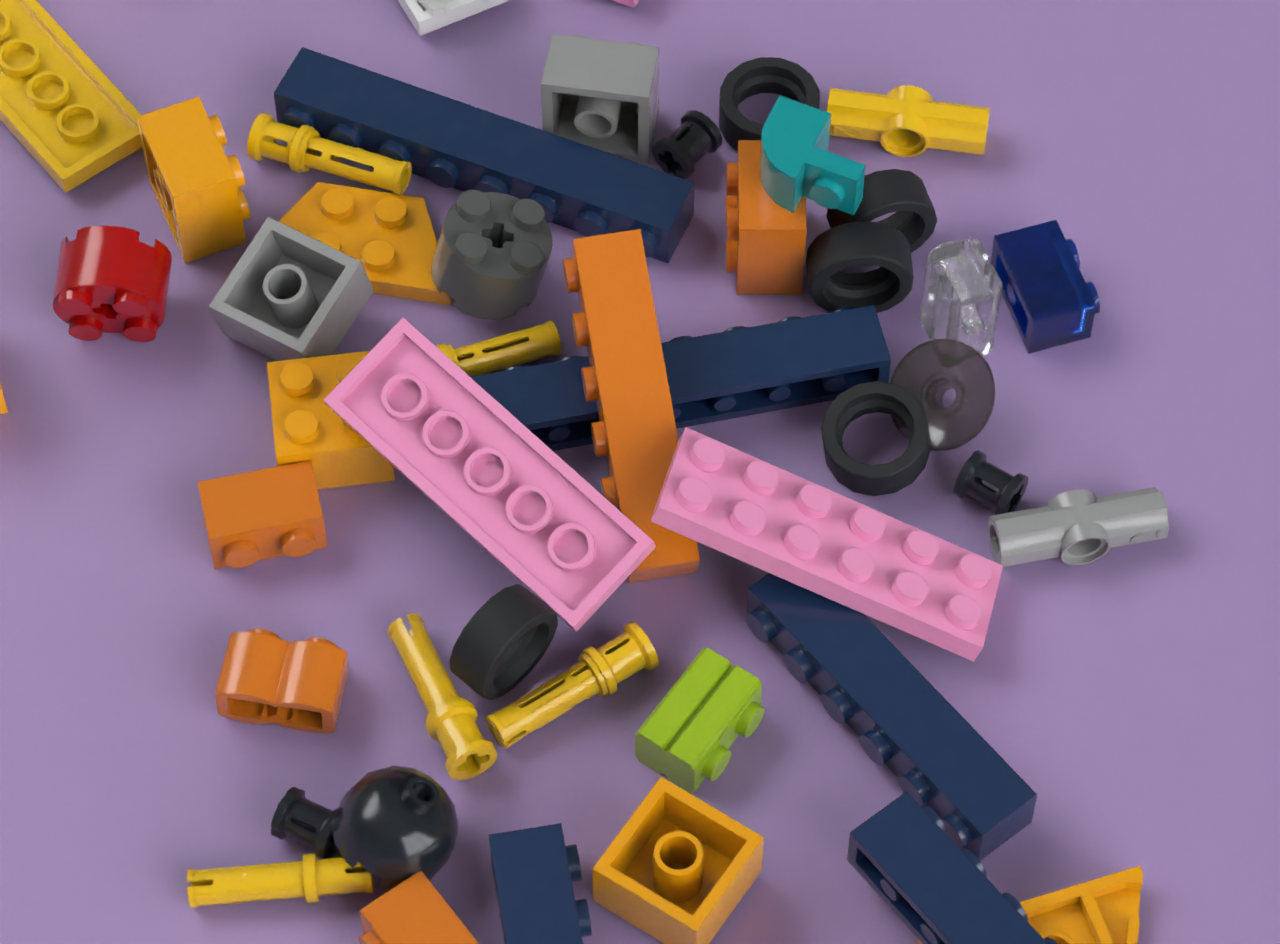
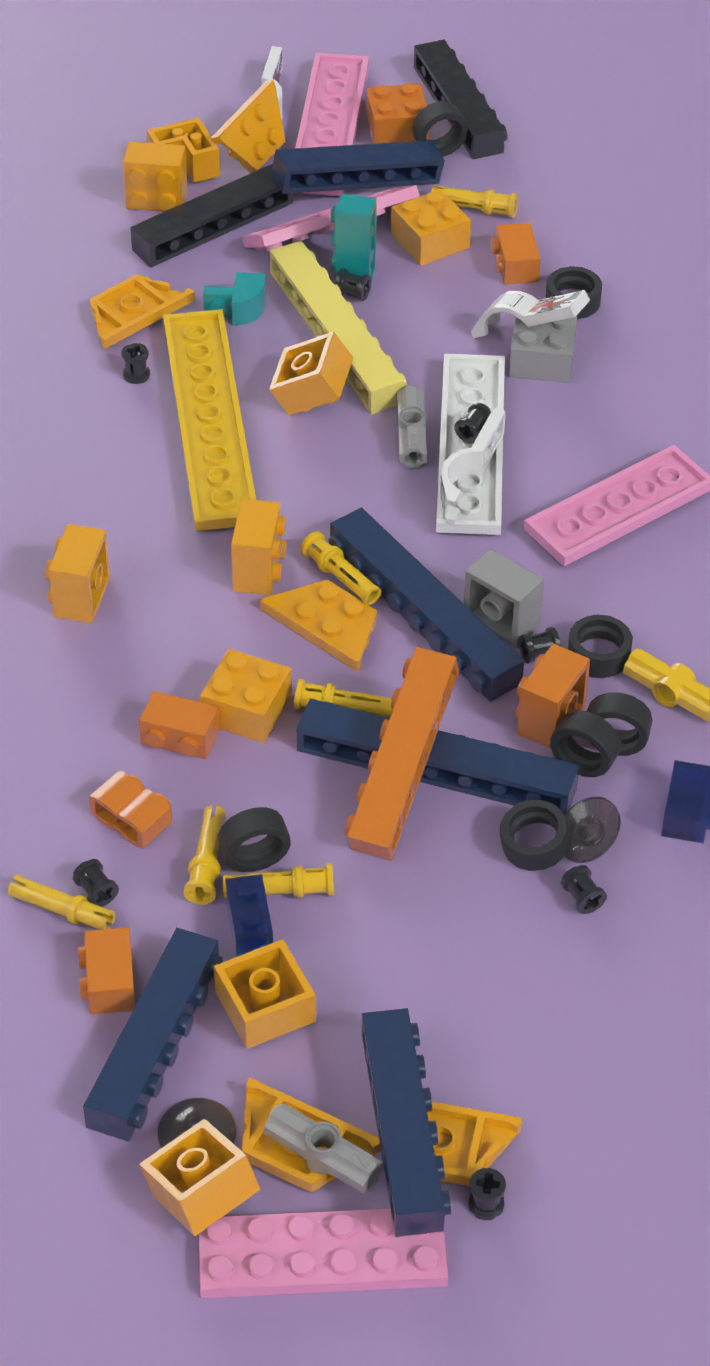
camera: 30 degrees right, 10 degrees down
(112, 284) = (180, 579): red brick -> none
(291, 295) = (267, 623): light grey brick -> none
(396, 825) = (135, 900): black cylinder -> none
(490, 474) = (300, 751): bright pink plate -> none
(492, 253) = (384, 646): dark grey brick -> none
(573, 765) = (248, 913): none -> clear blue brick
(700, 720) = (334, 930): lime brick -> none
(798, 163) = (575, 664): teal brick -> none
(828, 544) = (462, 871): bright pink plate -> none
(893, 713) = (443, 973): dark blue brick -> none
(961, 294) = (631, 782): clear brick -> none
(1078, 526) = (618, 932): light grey piece -> none

